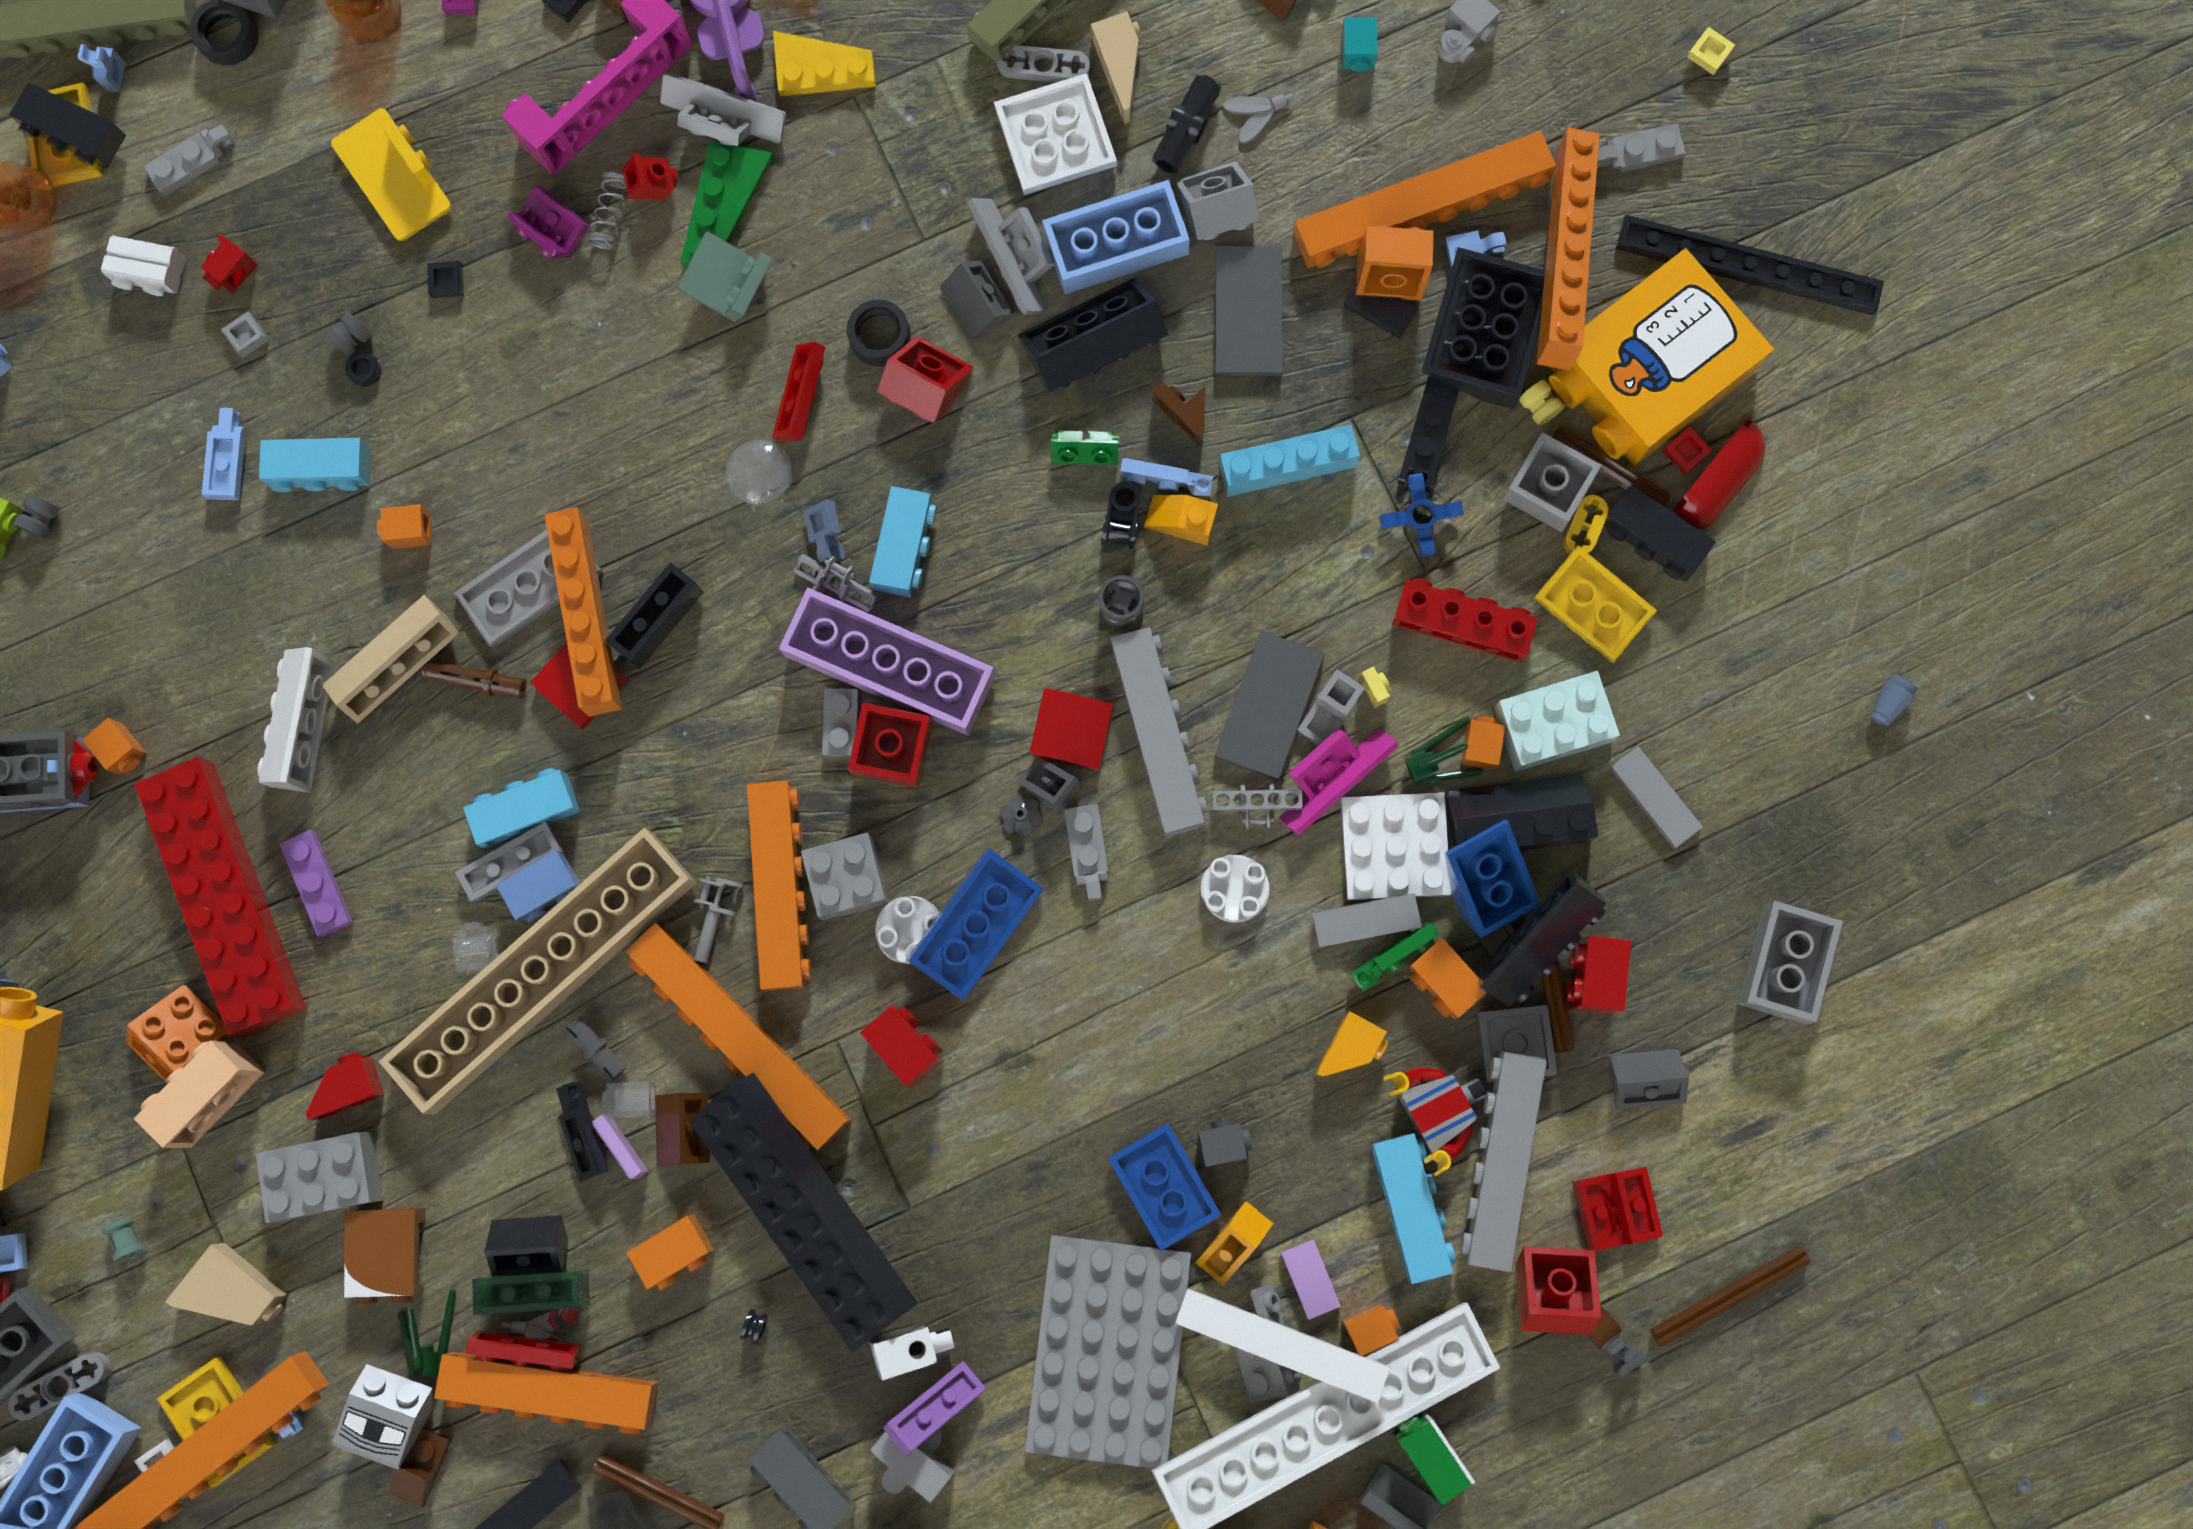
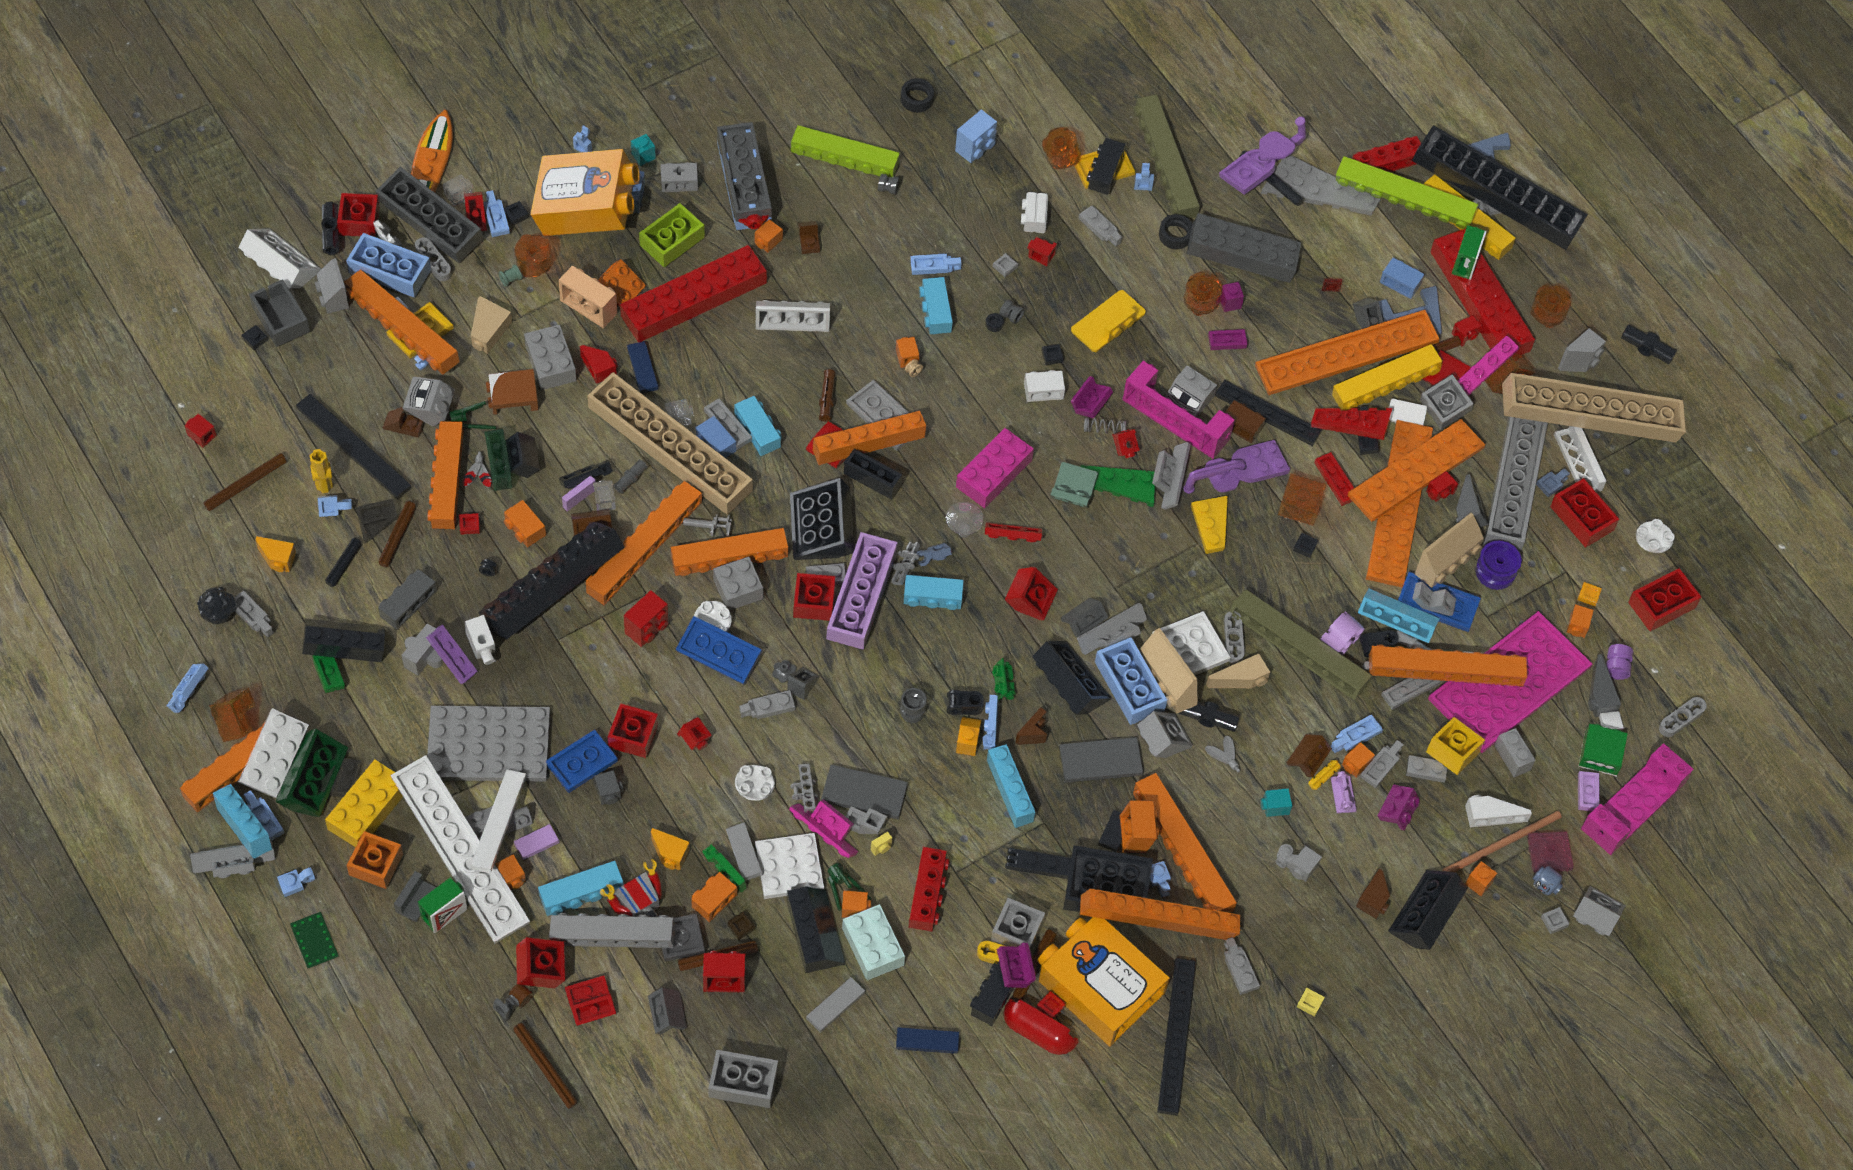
camera: 70 degrees right, 20 degrees down
(67, 1187) = (533, 255): none -> clear orange brick
(84, 924) = (671, 235): none -> lime brick
(126, 674) = (808, 237): none -> reddish brown slope
(316, 883) = (706, 337): medium lavender plate -> none
(363, 1007) = (642, 367): none -> dark blue tile
(390, 659) = (832, 353): tan brick -> none
(440, 519) = (913, 368): none -> tan bush
(511, 299) = (1044, 386): none -> white brick
(523, 1350) = (467, 460): red plate -> none
(560, 56) = (1191, 391): none -> light grey slope
(656, 1355) = (469, 524): none -> red plate
(668, 405) = (994, 468): none -> dark pink brick
(735, 717) = (822, 521): none -> black slope
(869, 310) = (1056, 555): black tyre -> none
(1071, 729) = (836, 689): red slope -> none
(1115, 165) = (1170, 672): none -> tan slope
(1120, 1089) = (633, 730): none -> red brick
(1136, 970) = (695, 734): none -> red brick
(1158, 733) = (840, 732): light grey brick -> none
(1234, 1243) = (554, 798): light orange slope -> none
(1418, 498) = (1002, 855): blue pin -> none
(1490, 879) = (773, 904): blue slope -> none
(1541, 402) = (1066, 920): light yellow wheel -> none
(1541, 939) = (740, 933): black slope -> none
(1595, 604) = (948, 960): yellow tile -> none
(1635, 489) = (1016, 965): none -> magenta bracket
(1730, 656) = (927, 1040): none -> dark blue tile
(1893, 700) = (913, 1133): sand blue cone -> none

